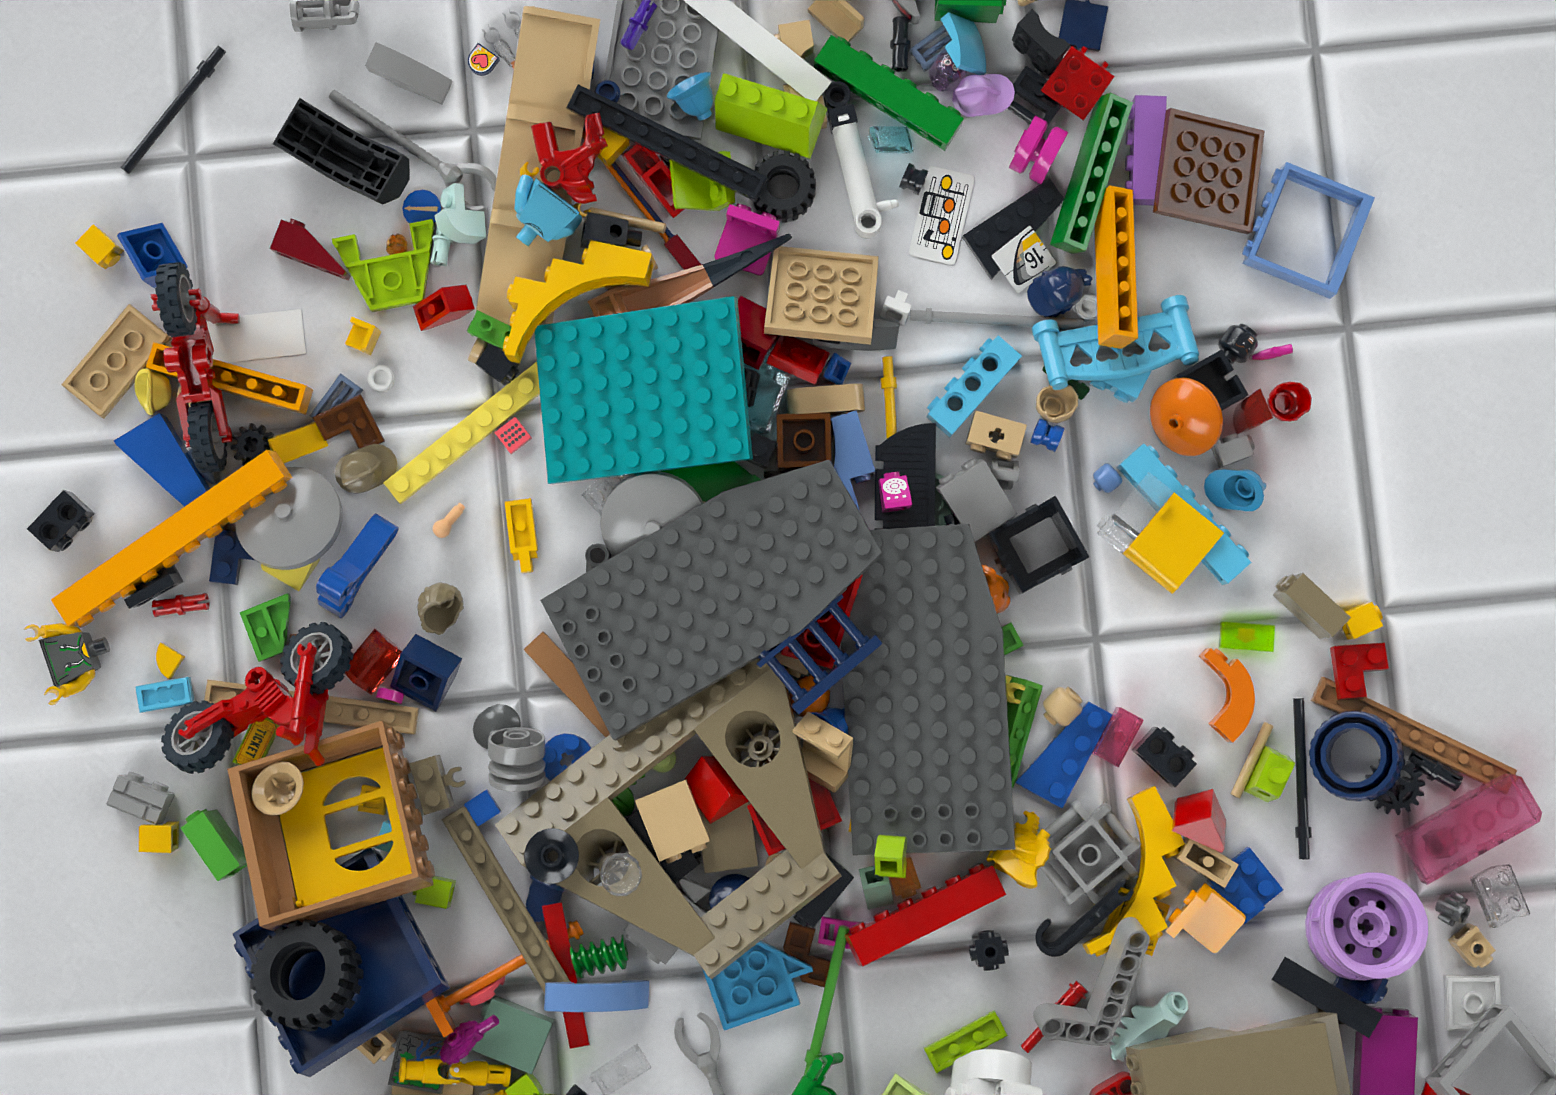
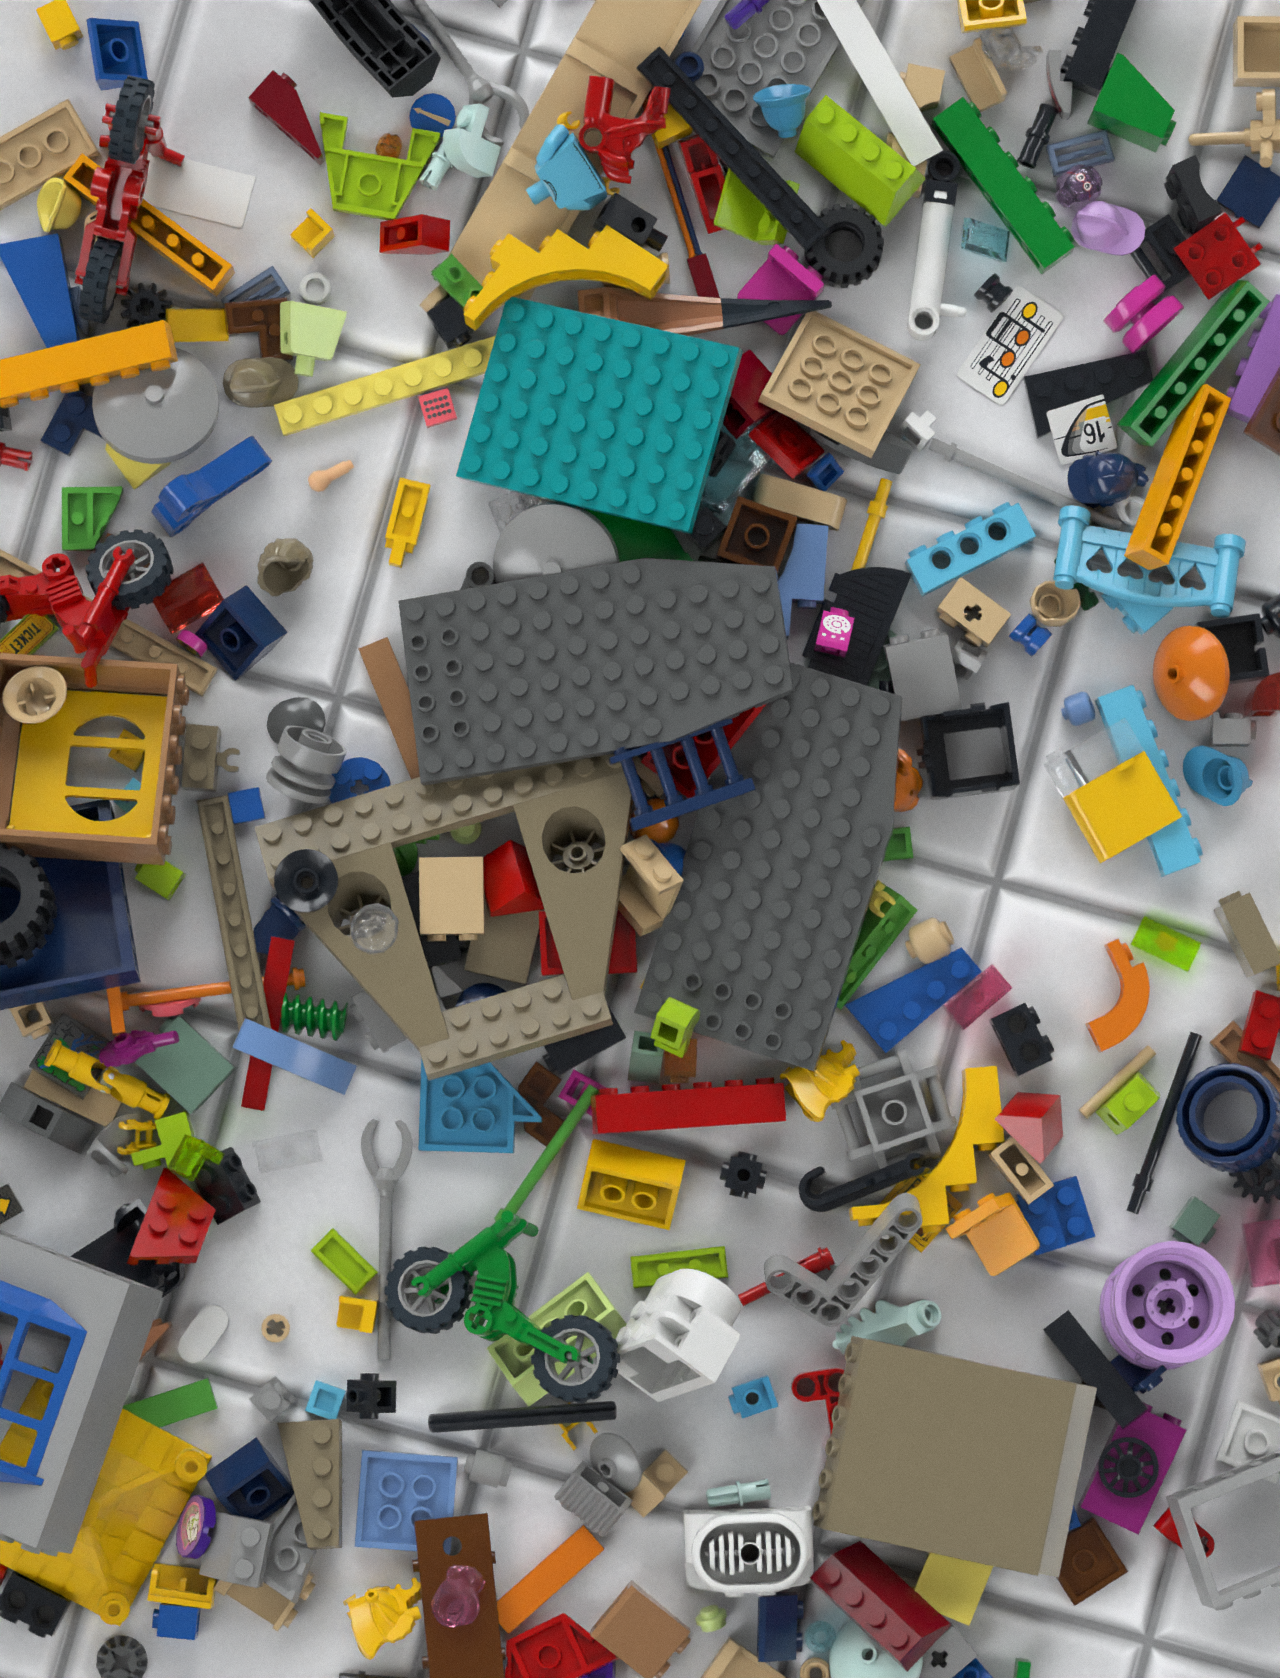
camera: 20 degrees right, 0 degrees up
(389, 416) = (309, 333): none -> yellowish green torso
(634, 221) = (662, 220): tan bar -> none
(903, 991) = (631, 1184): none -> yellow slope
(966, 44) = (1110, 167): medium azure slope -> none
(1357, 849) = (1195, 1223): none -> sand green brick
(1384, 1066) = (1128, 1467): none -> black wheel

